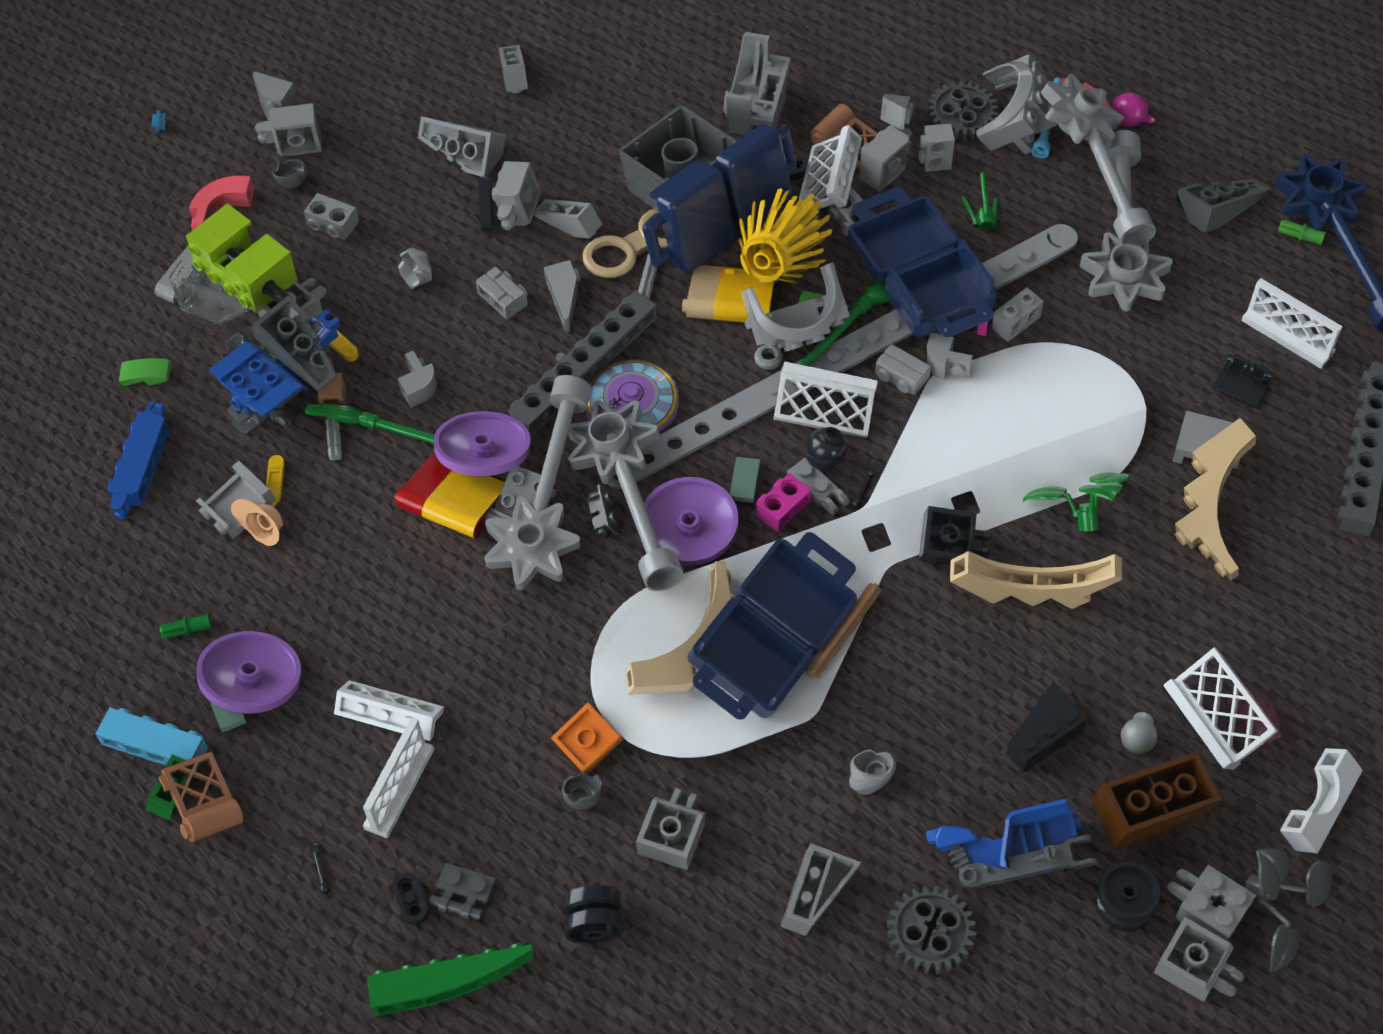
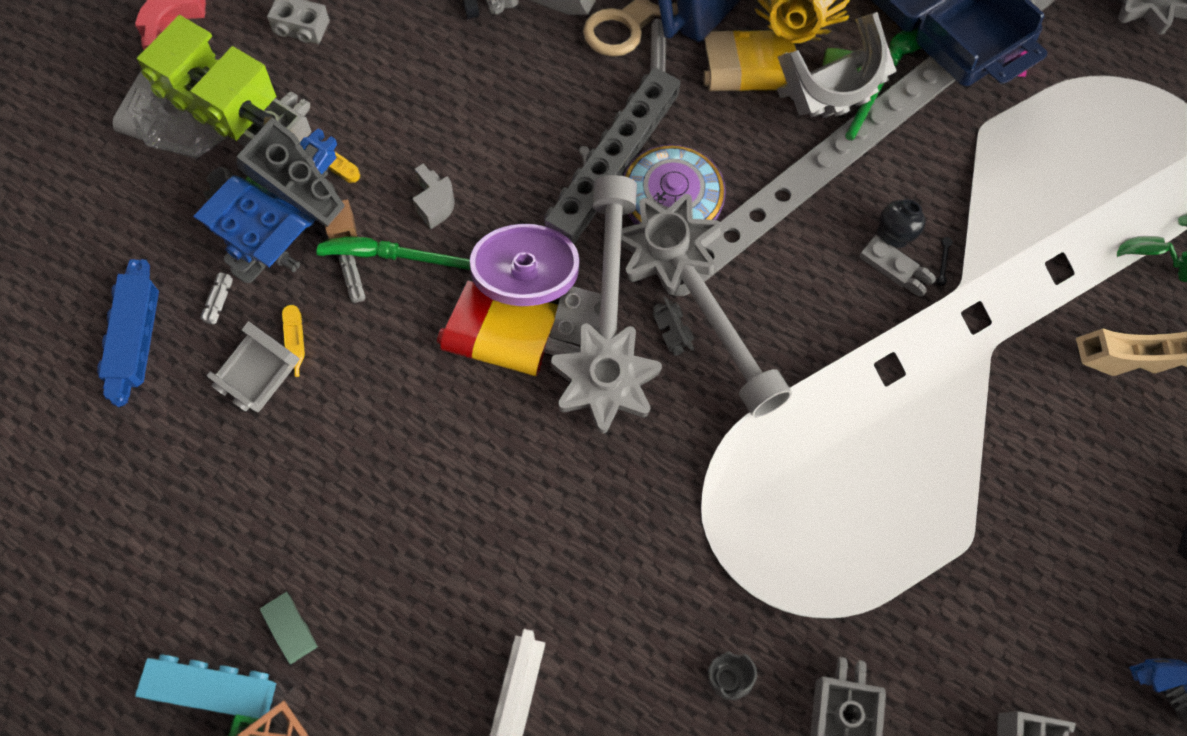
camera: 15 degrees left, 10 degrees up
(149, 370) = (118, 221): bright green slope -> none
(185, 626) = (221, 533): green axle -> none
(216, 442) = (216, 298): none -> light grey axle
(248, 672) = (308, 585): medium lavender dish -> none
(259, 520) = (285, 388): light nougat piece -> none
(385, 708) = (481, 608): white fence -> none
(415, 267) = (404, 67): light grey hair -> none
(502, 292) = (505, 85): light grey brick -> none
(563, 287) = (569, 69): light grey slope -> none
(587, 738) = (720, 607): orange tile -> none
(672, 670) = (836, 443): tan arch -> none
(693, 519) = (779, 323): medium lavender dish -> none
(745, 479) = (818, 268): sand green slope -> none
(768, 364) = (804, 133): light grey piece -> none
(772, 627) = (899, 457): dark blue piece -> none
(787, 505) = (869, 291): dark pink brick -> none
(830, 381) = (880, 146): white fence -> none
(844, 630) = (974, 434): medium nougat axle -> none
(871, 771) = (1048, 600): light grey hair -> none
(902, 370) = (953, 124): light grey brick -> none
(944, 360) = (990, 108): light grey brick -> none
(960, 529) = (1059, 309): black hinge -> none
(1017, 314) = (1058, 46): light grey brick -> none

